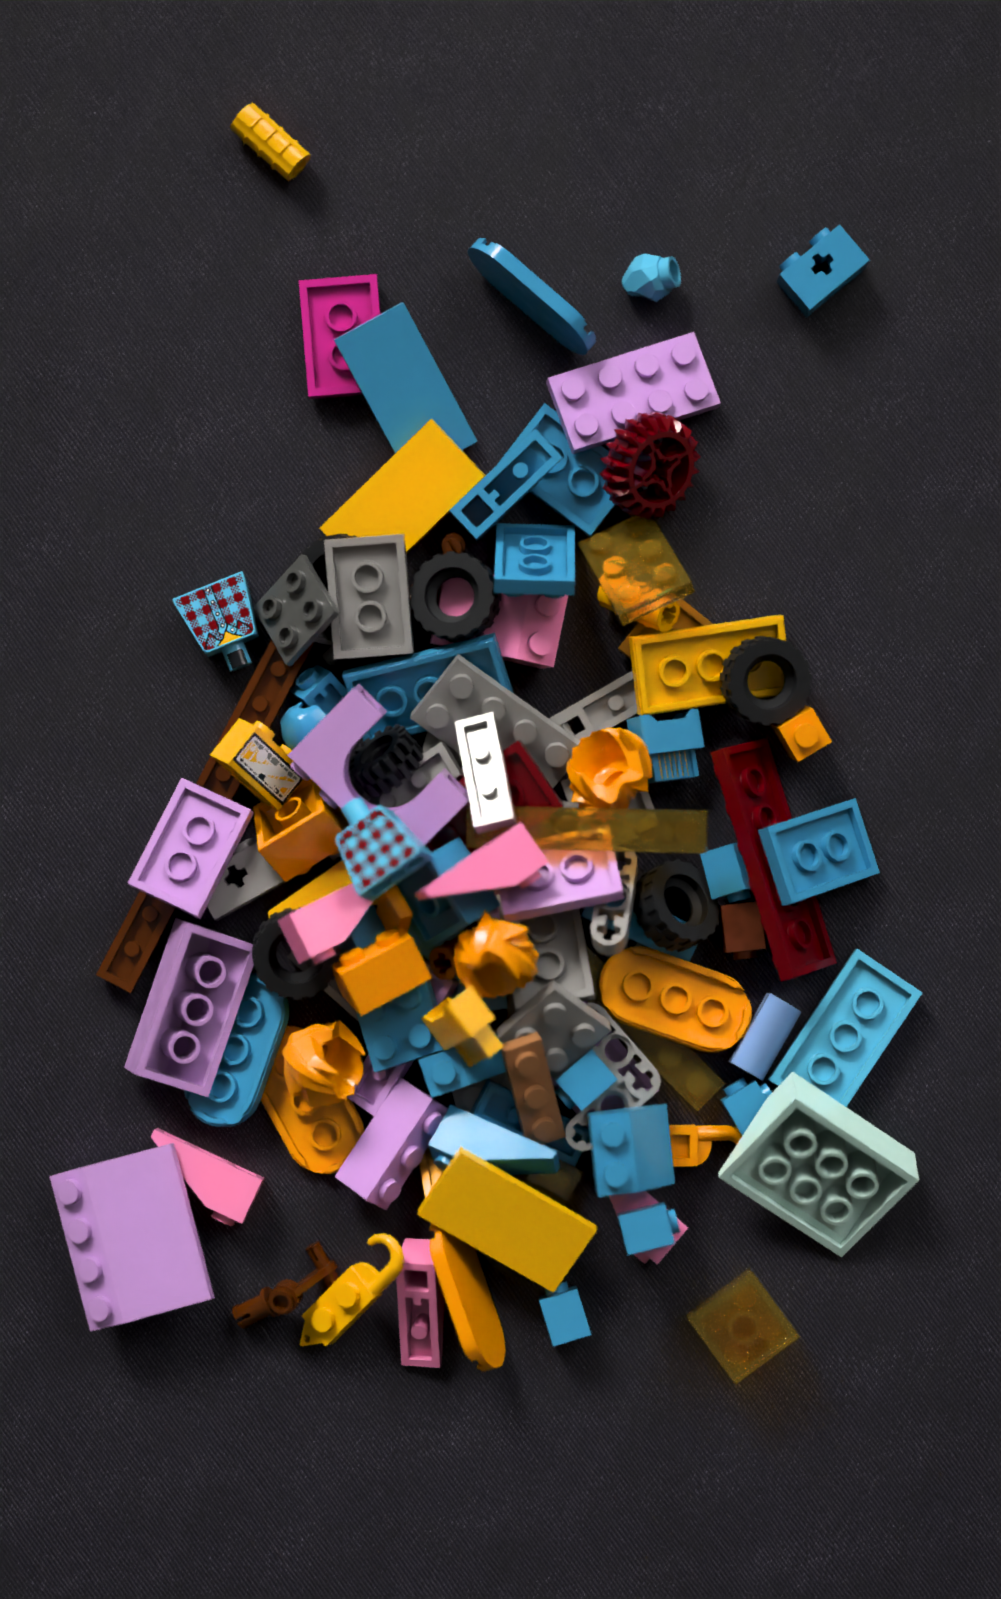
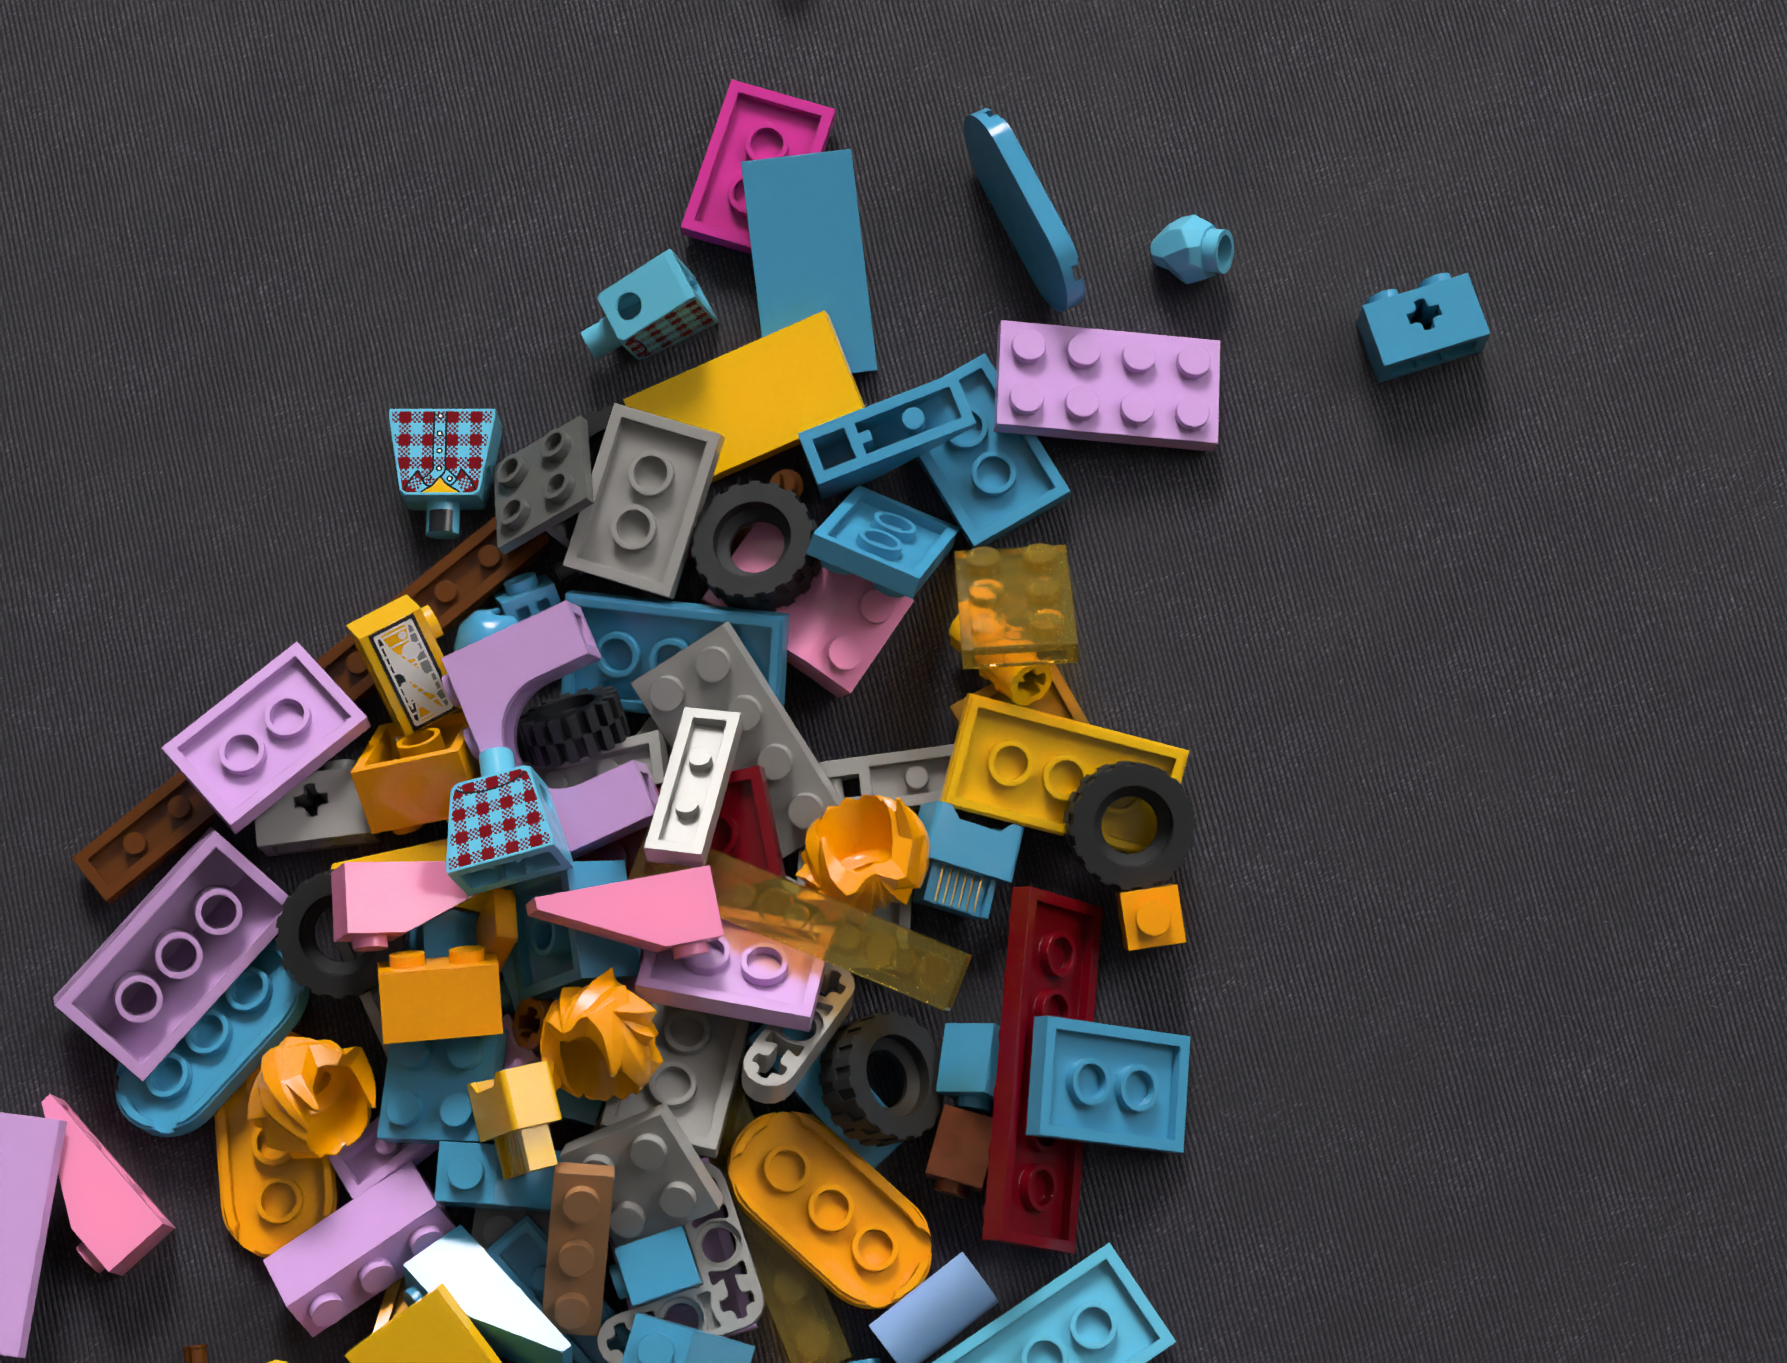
camera: 25 degrees right, 10 degrees down
(325, 452) = (650, 310): none -> medium azure torso
(639, 462) = (1073, 468): dark red gear -> none

